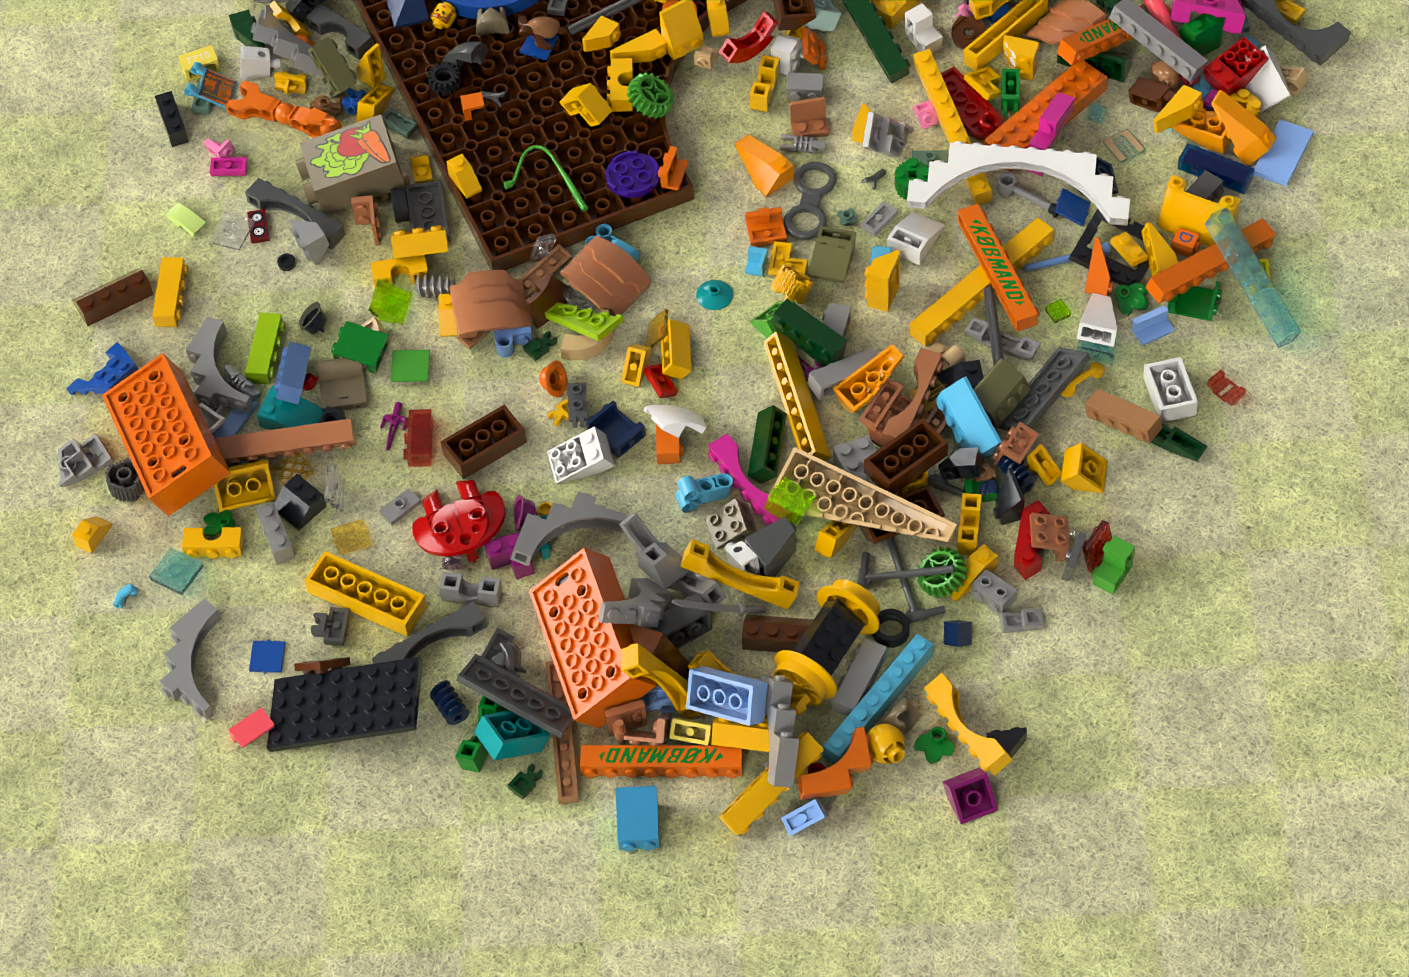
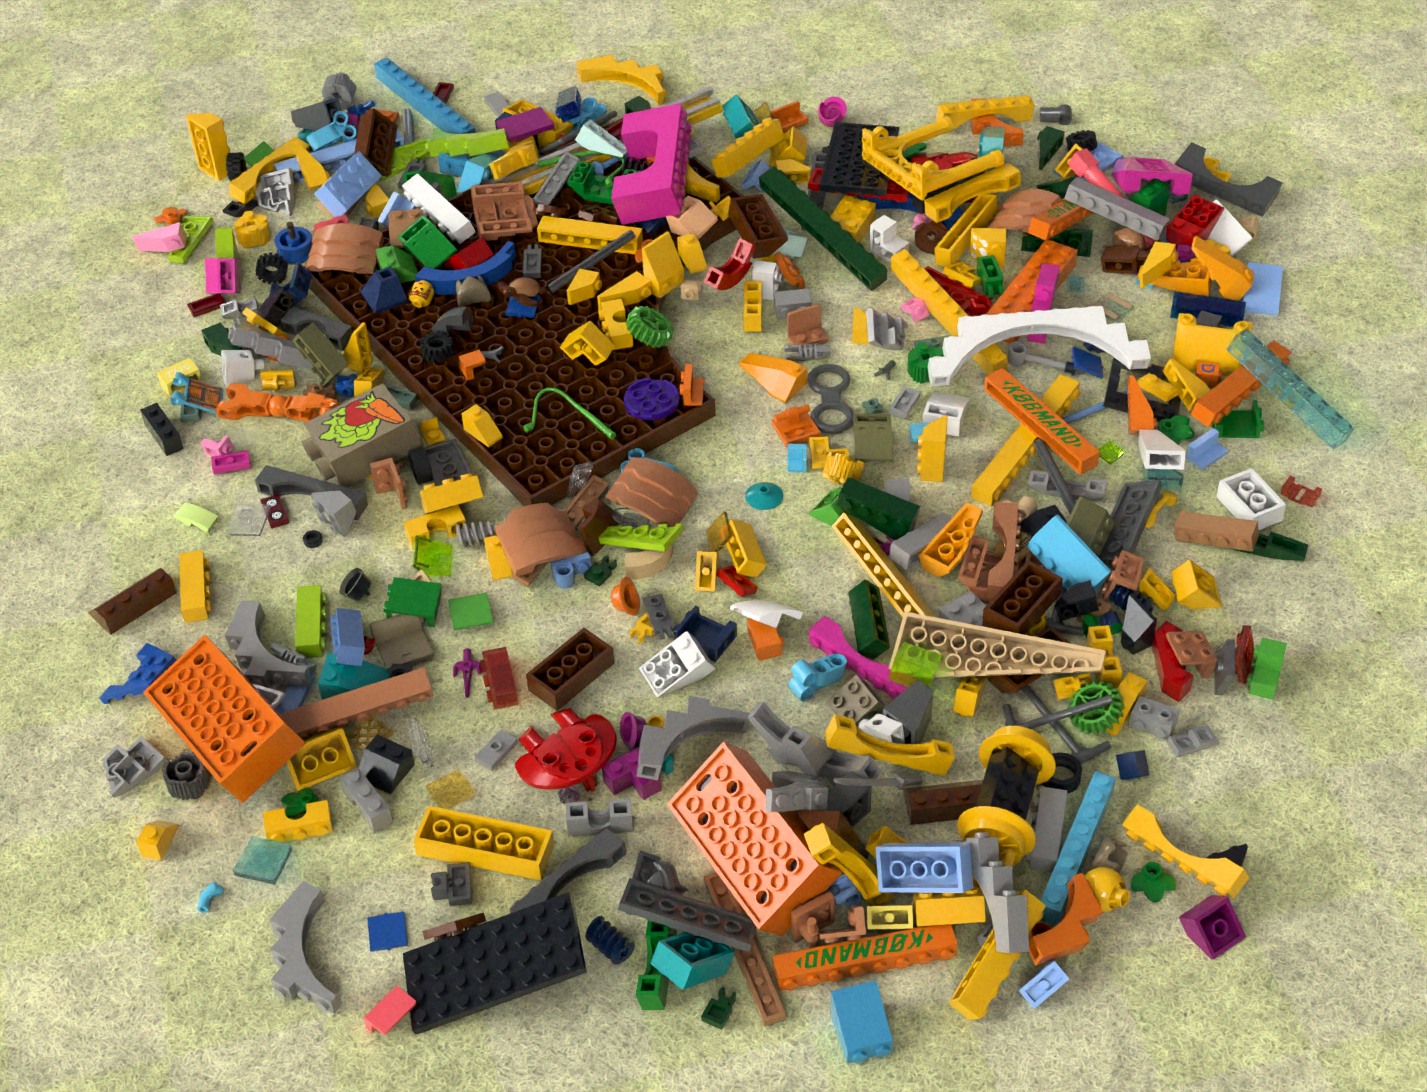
camera: 15 degrees left, 10 degrees down
(923, 545) = (1065, 686): none -> yellow hips

